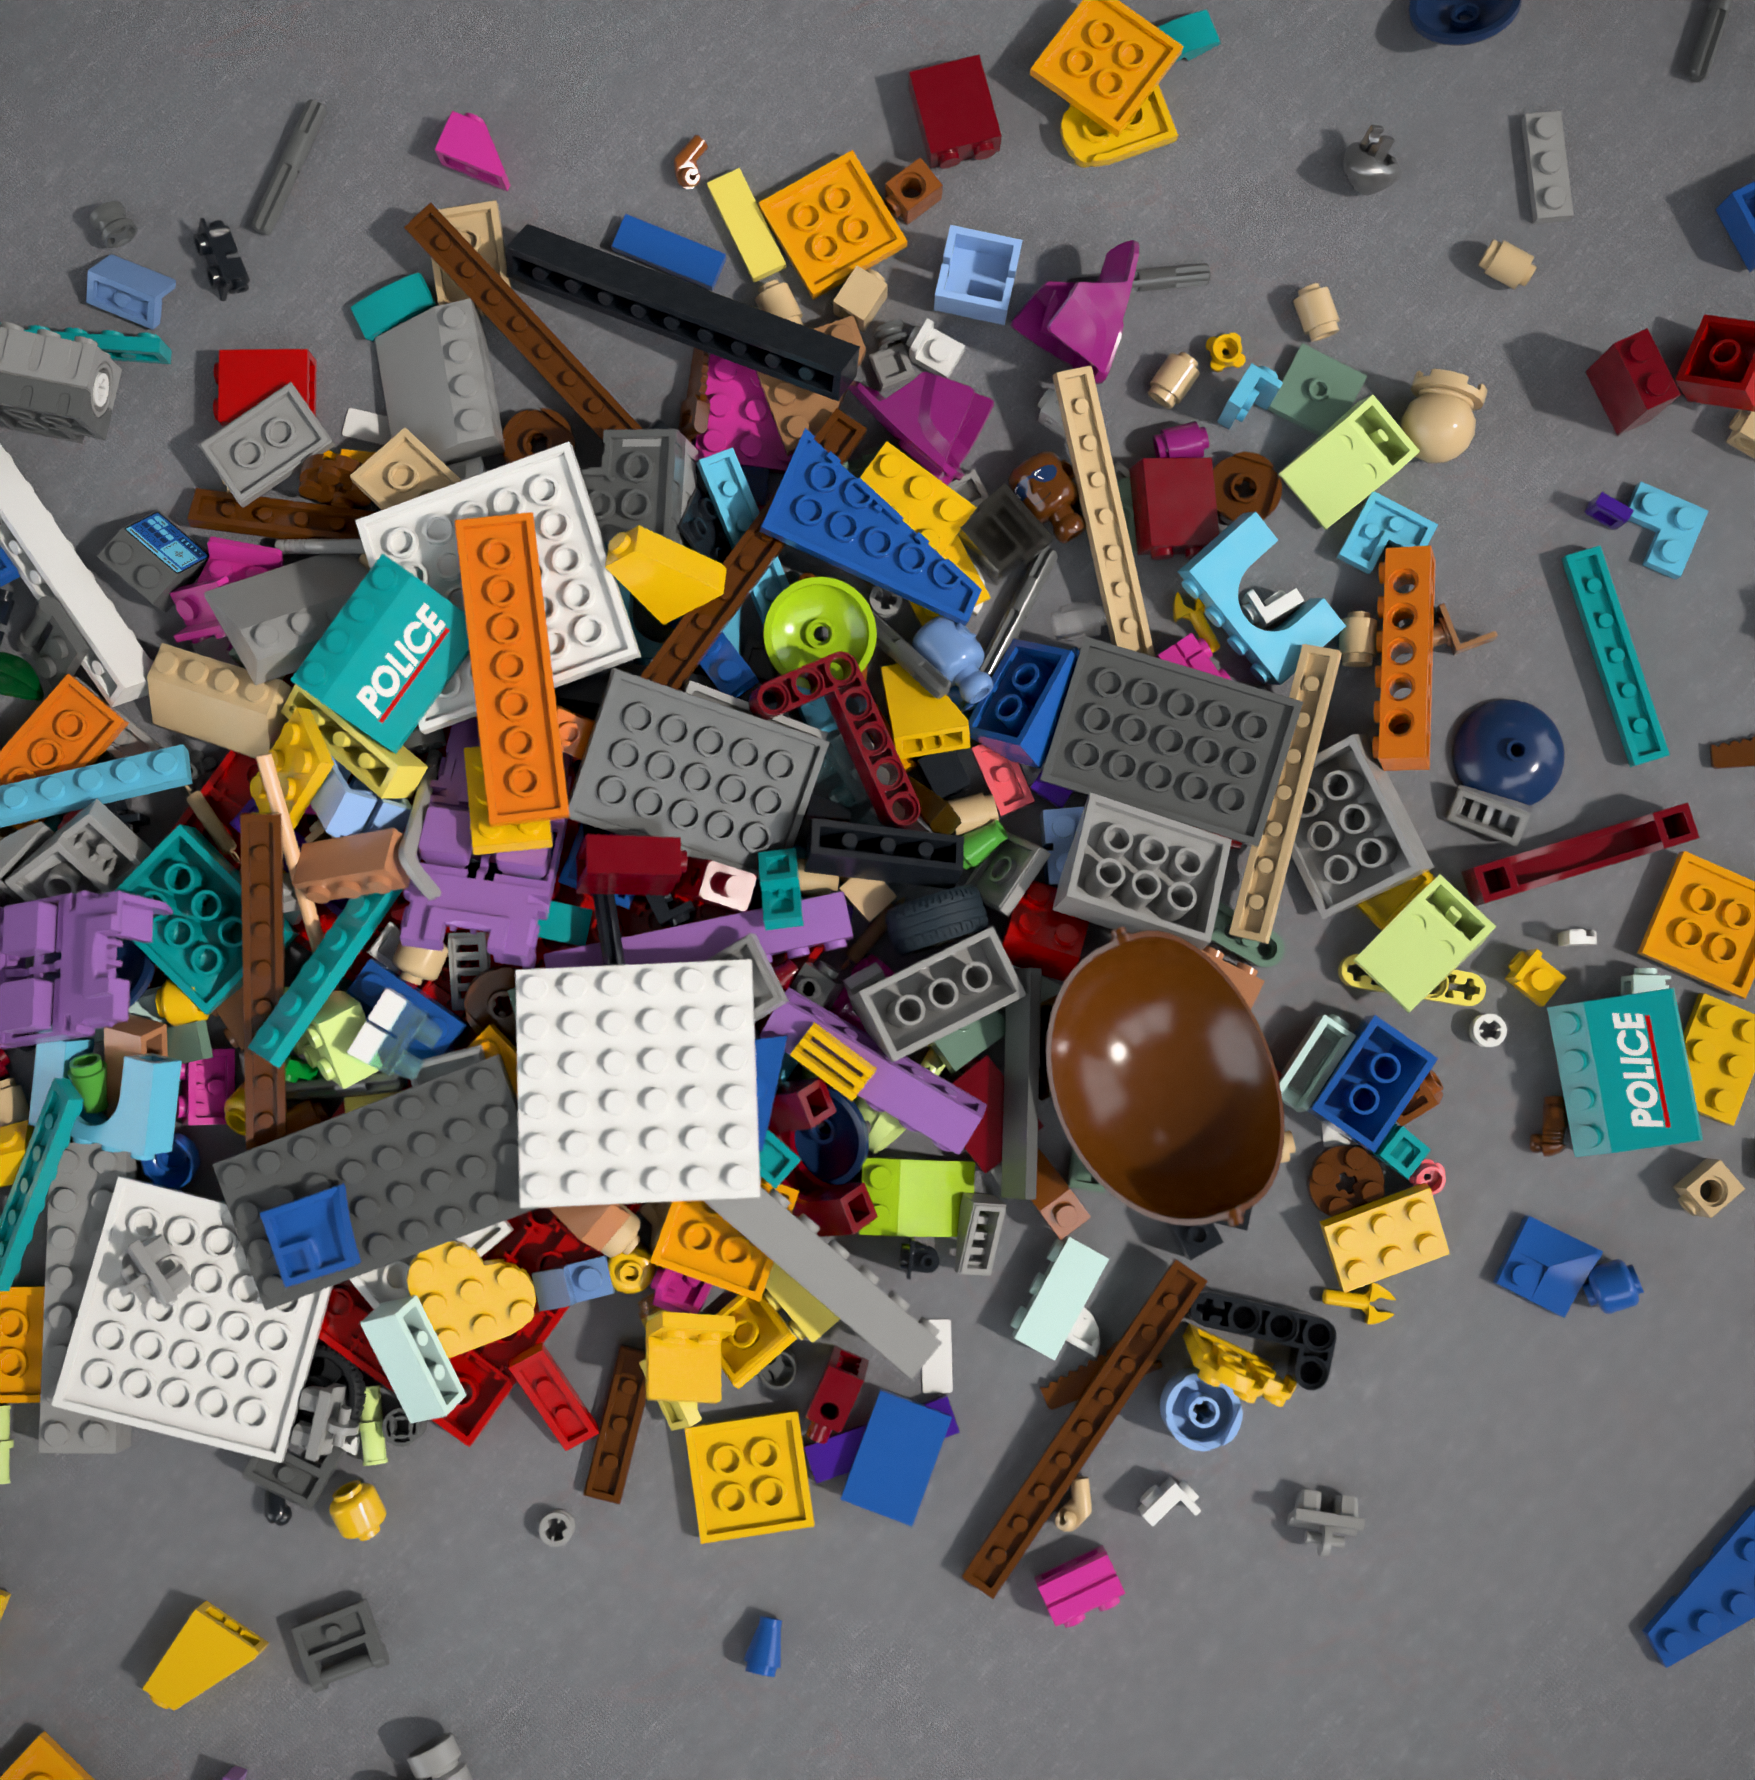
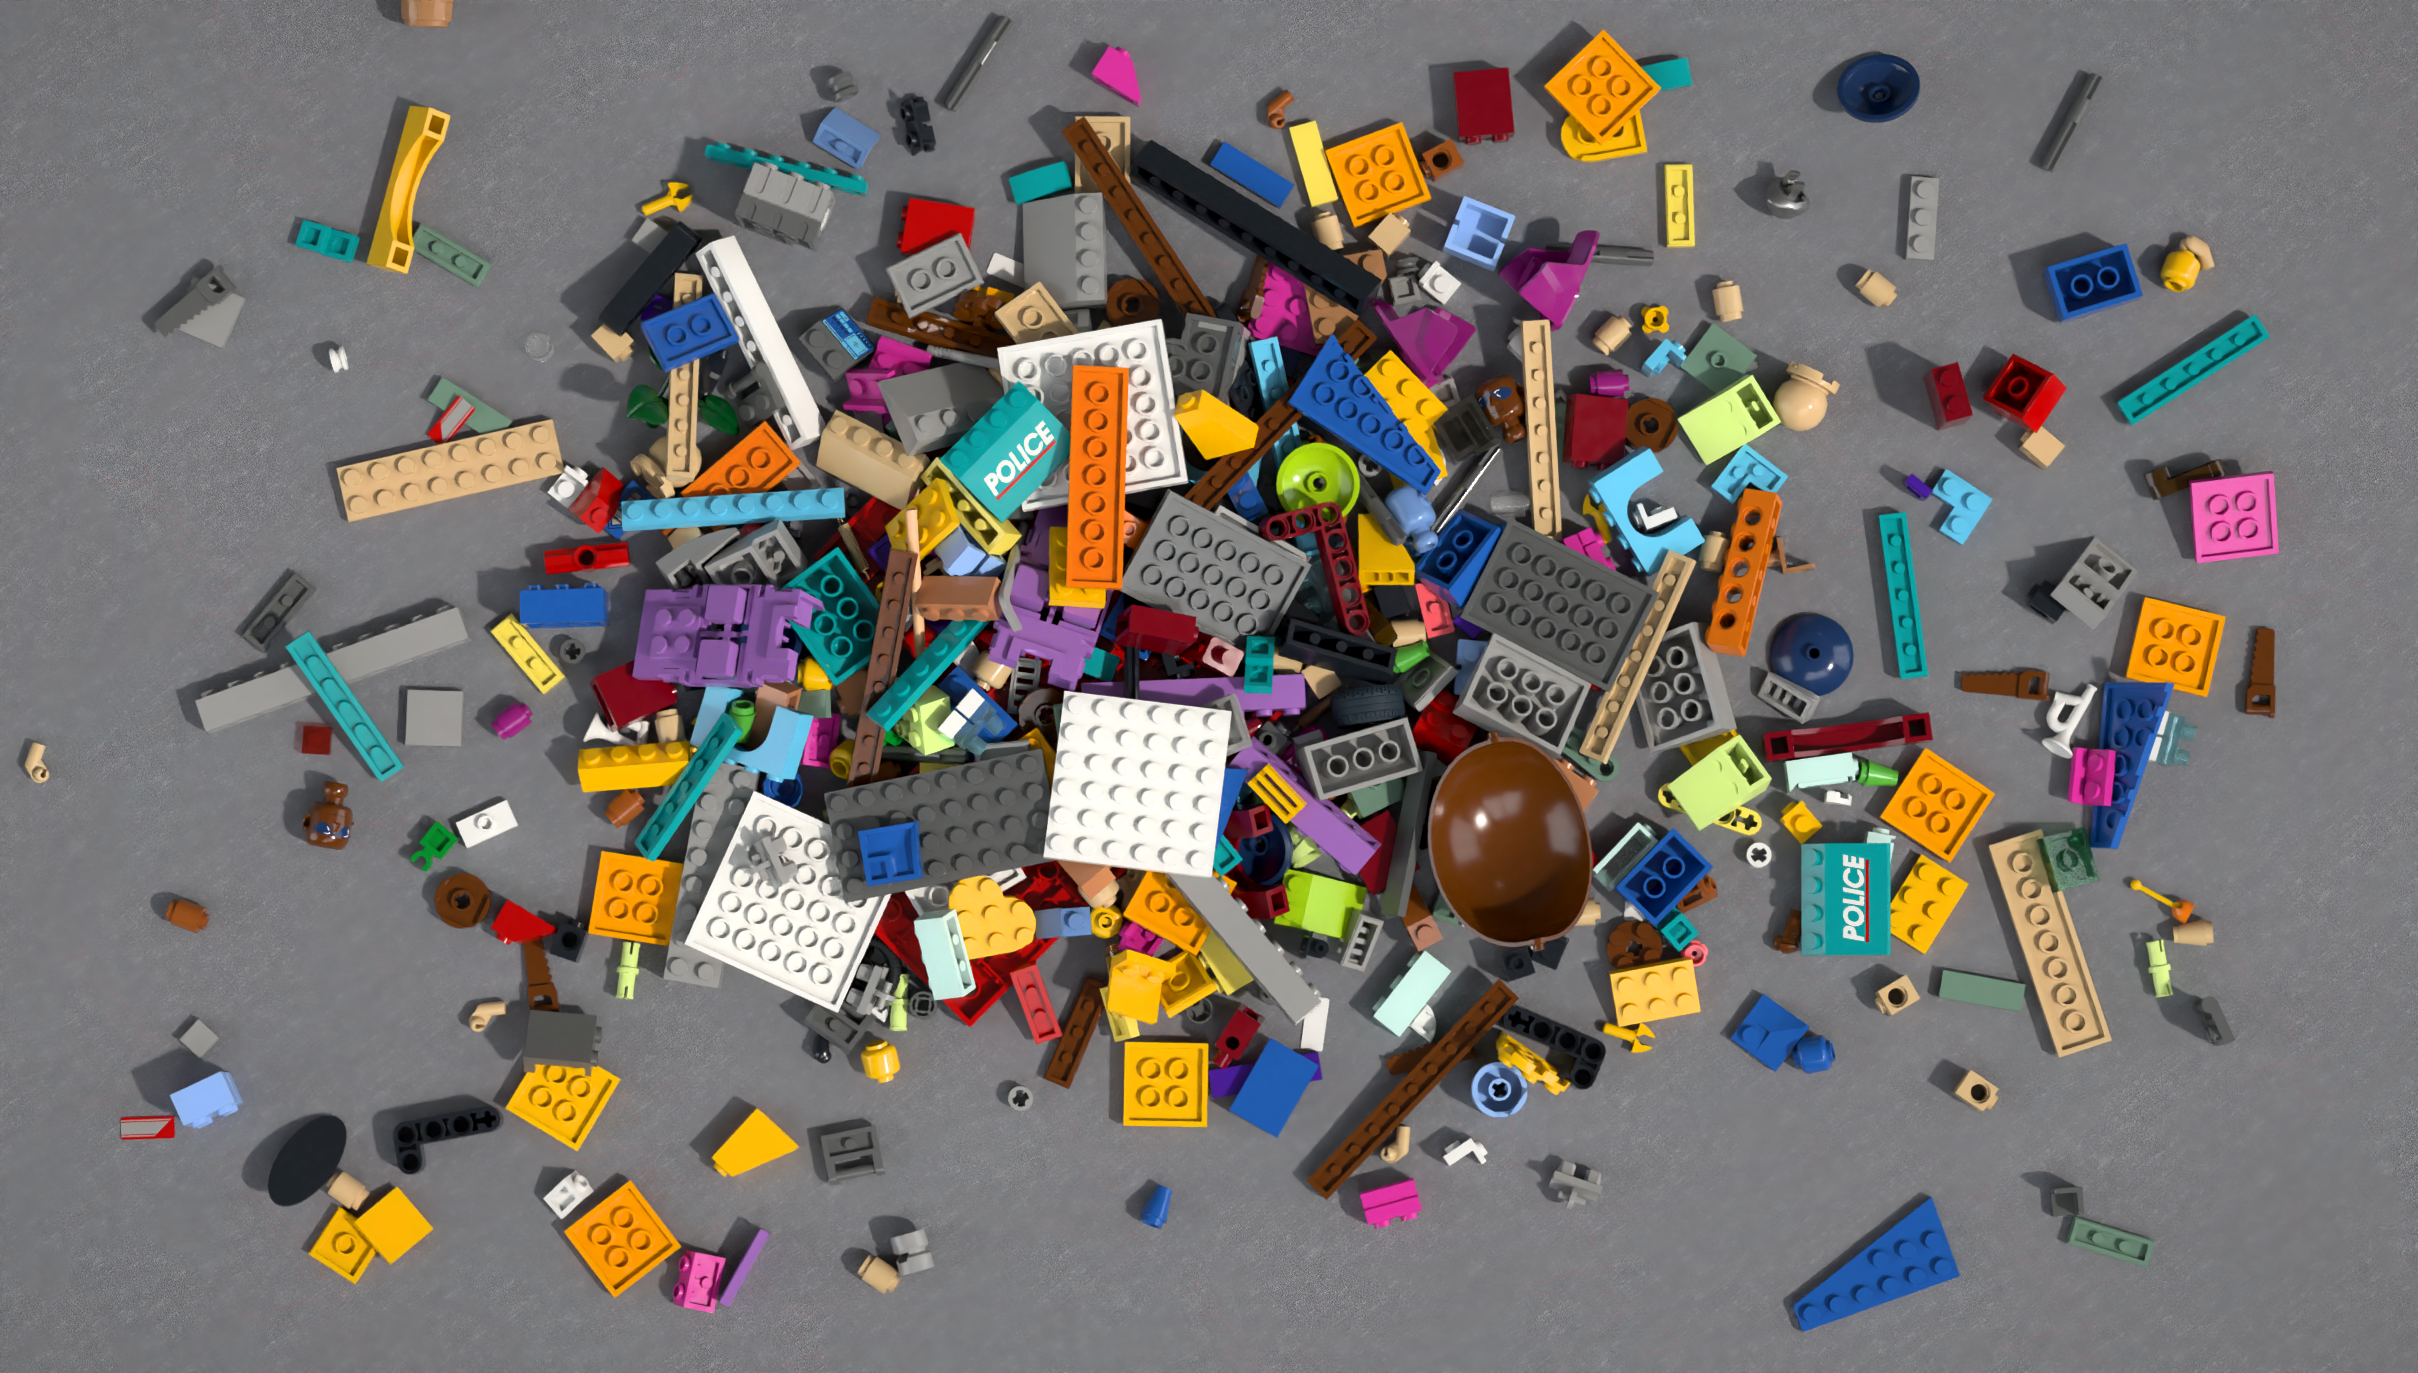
camera: 10 degrees right, 0 degrees up
(1230, 202) = (1679, 206): none -> light yellow tile
(1550, 906) = (1820, 771): none -> light aqua window
(1621, 897) = (1875, 774): none -> bright green cone

